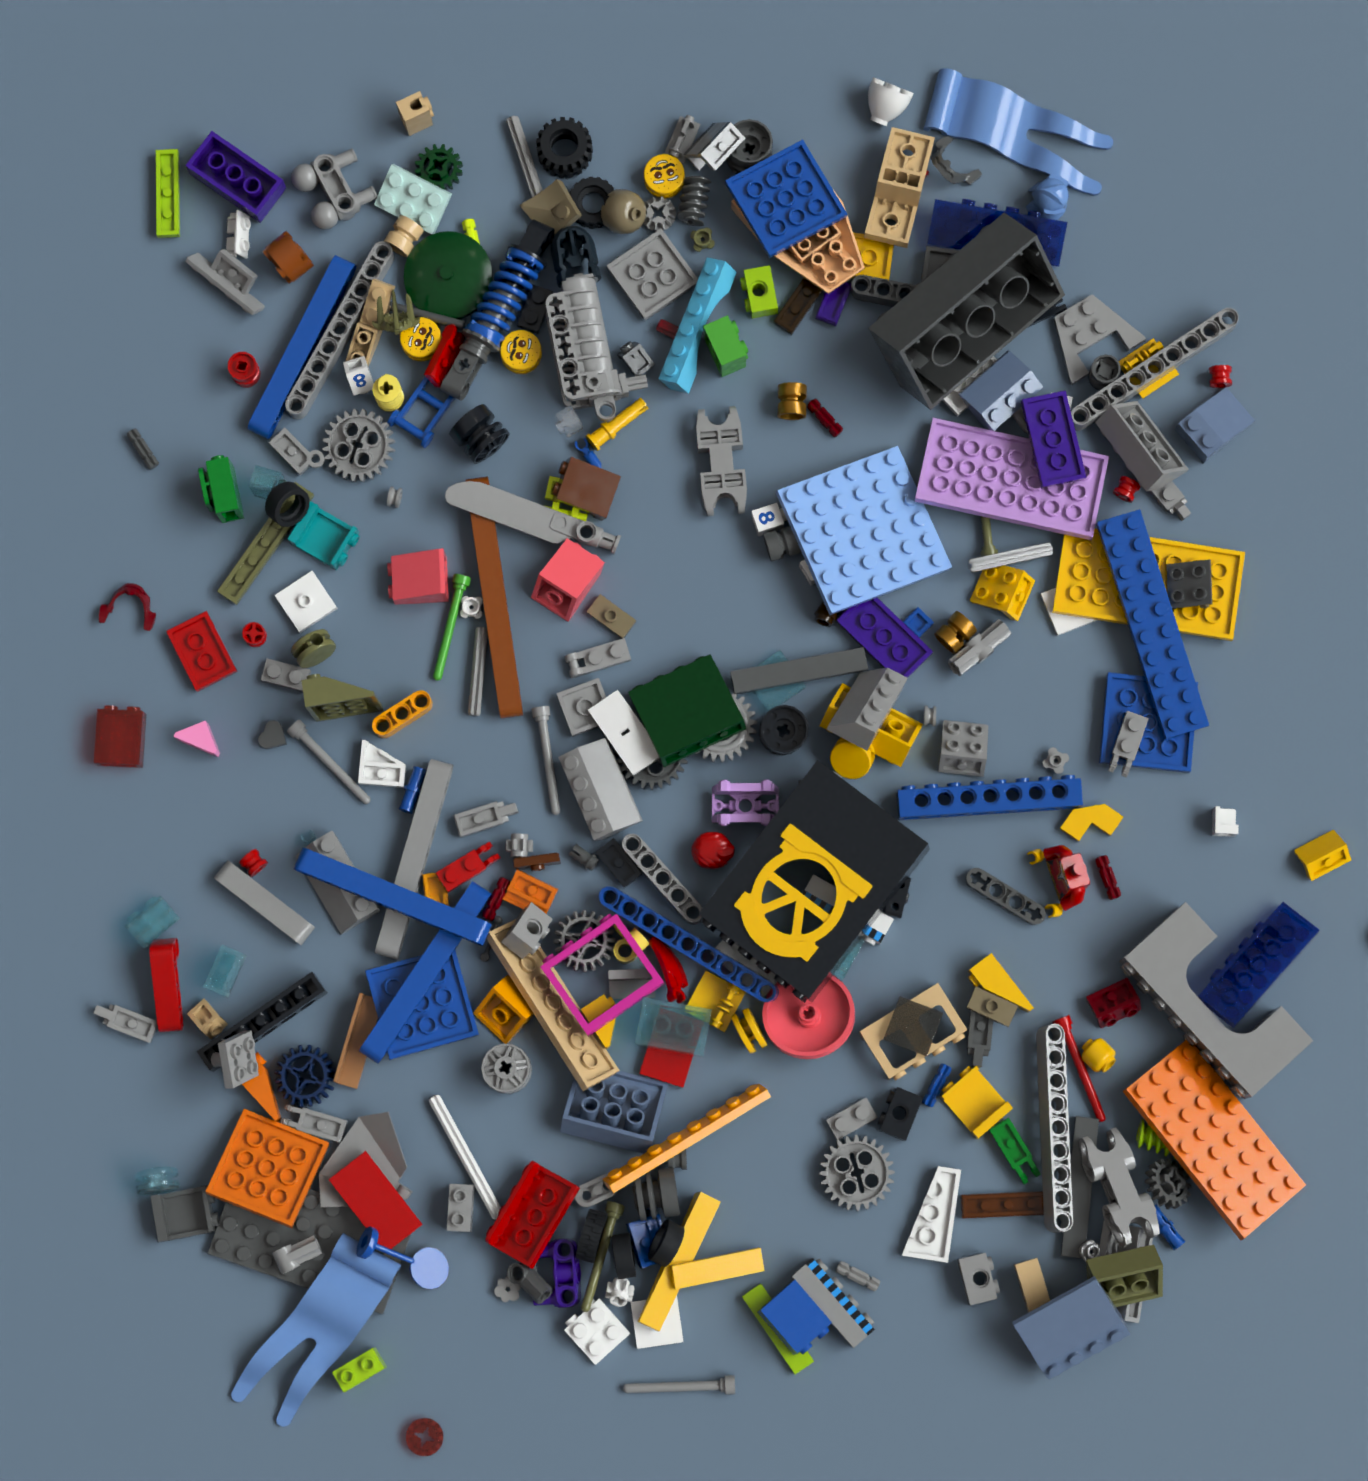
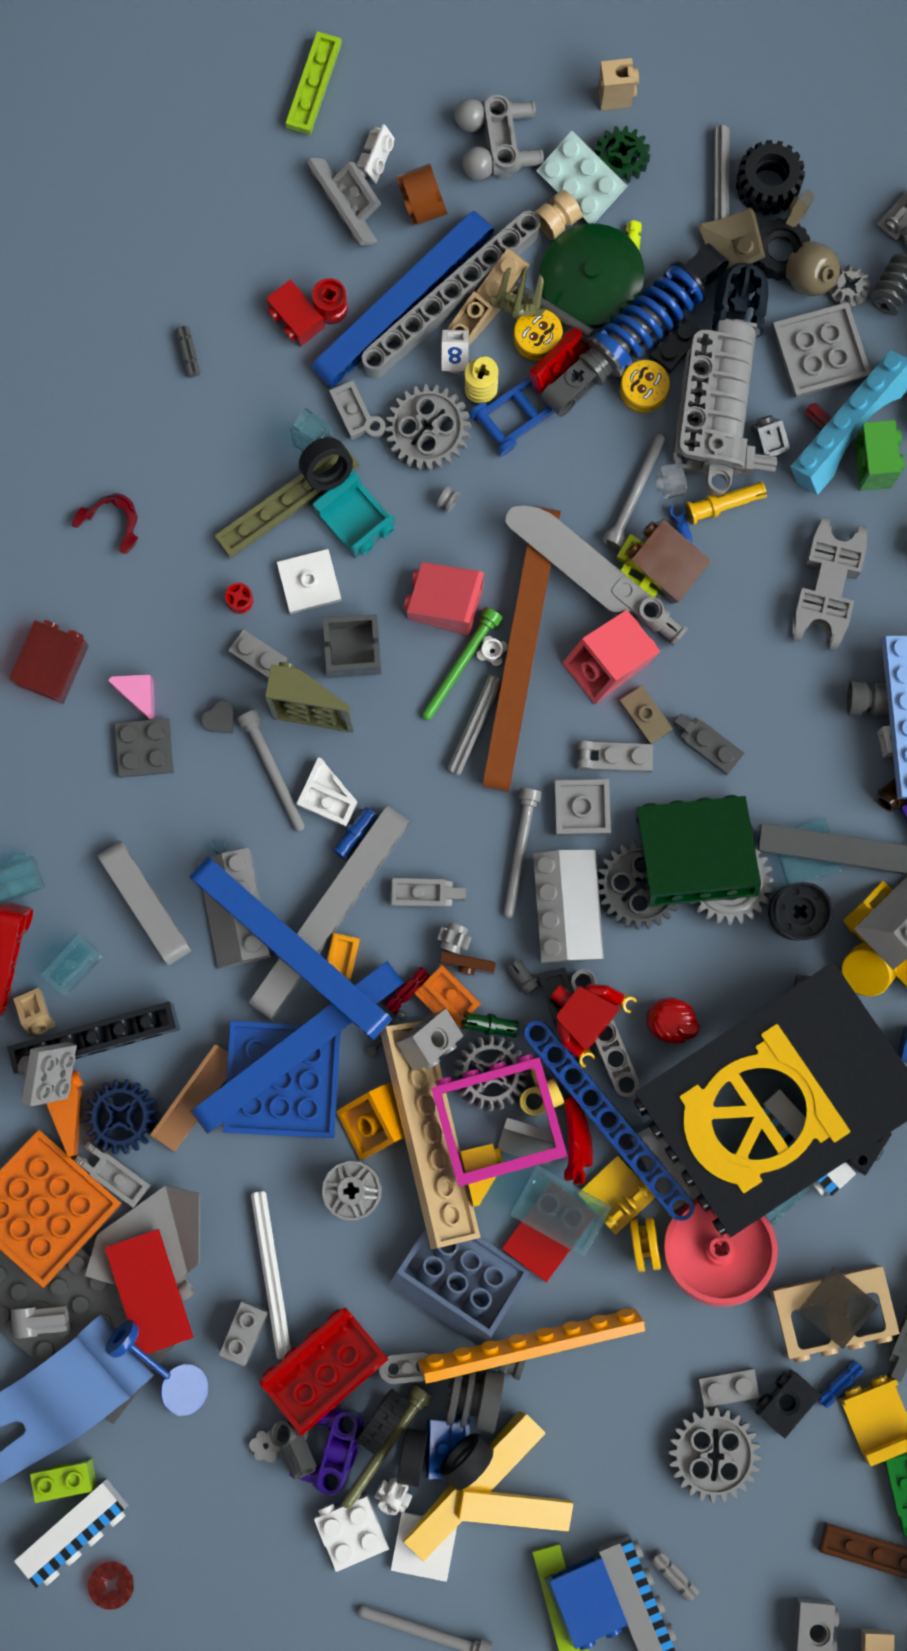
camera: 15 degrees right, 0 degrees up
(201, 651) = (173, 596): red plate -> none
(218, 388) = (295, 313): none -> red brick
(220, 780) = (144, 748): none -> dark grey plate
(221, 489) = (258, 423): green brick -> none
(236, 176) = (395, 88): dark purple brick -> none
(253, 862) = (148, 853): red wheel -> none
(313, 648) = (298, 635): olive head -> none
(359, 641) = (352, 646): none -> dark grey piece
(380, 1407) = (71, 1533): none -> white brick
(408, 704) = (359, 740): light orange beam -> none
(465, 868) = (384, 943): red hinge -> none
(477, 432) = (567, 459): black wheel -> none
(538, 482) = (615, 537): none -> light grey piece
(570, 903) = (490, 1024): none -> dark green pin
(596, 165) = (799, 208): none -> dark tan plate
(615, 717) = (614, 830): white piece -> none
(643, 869) = (586, 1015): none -> red torso
(664, 176) = (870, 246): yellow head -> none
(668, 622) = (708, 743): none -> dark grey hinge
(702, 233) = (889, 323): olive plate -> none
(741, 792) = (734, 967): lavender piece -> none
(768, 519) = (861, 665): white brick -> none
(934, 1224) = (787, 1542): white wing -> none

